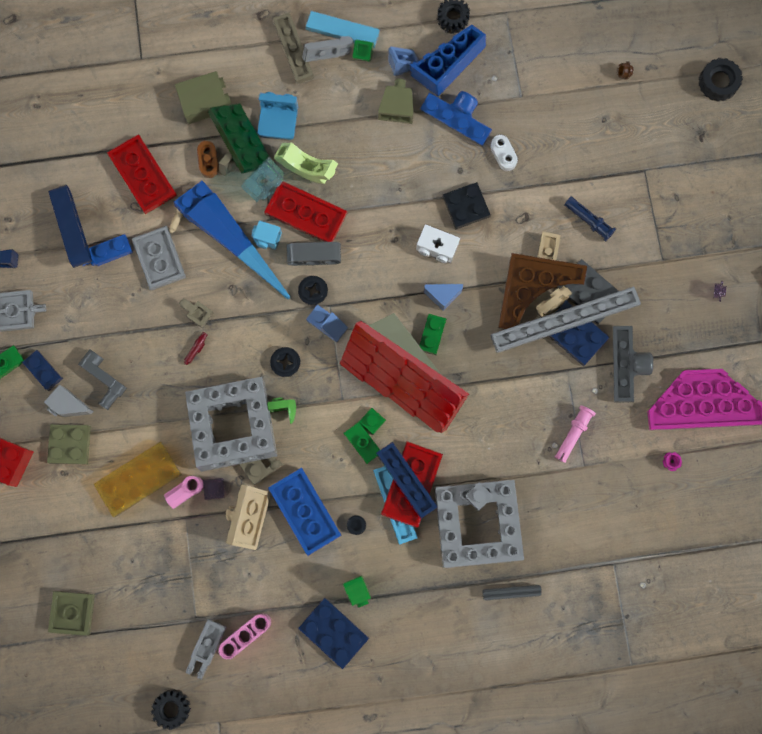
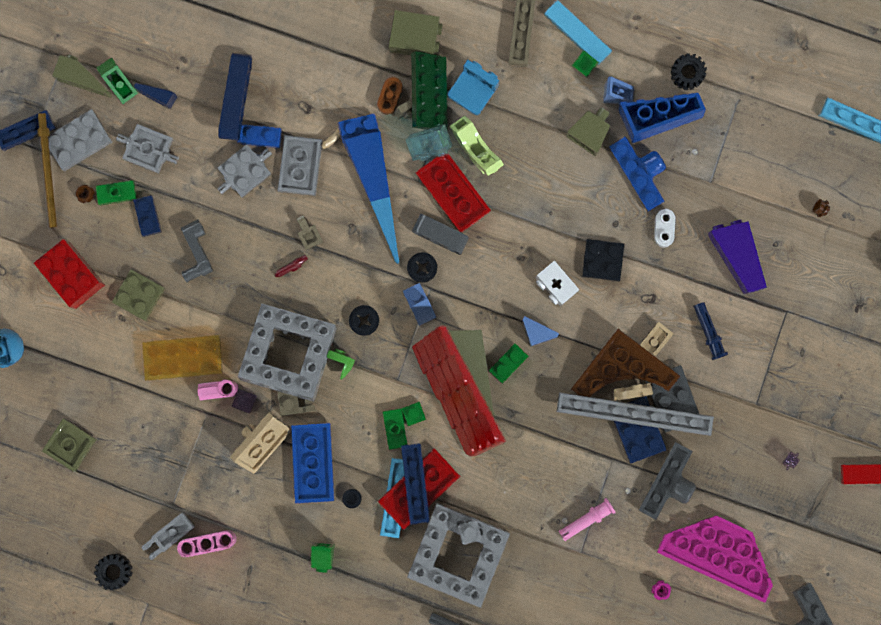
camera: 30 degrees right, 5 degrees up
(66, 404) = (153, 257): light grey slope -> none
(111, 287) = (244, 171): none -> light grey plate
(142, 174) = (323, 79): red plate -> none
(266, 235) = (406, 195): medium azure brick -> none
(327, 49) = (552, 46): light grey hinge -> none
(333, 633) = (283, 581): dark blue plate -> none
(579, 142) = (739, 254): none -> dark purple slope

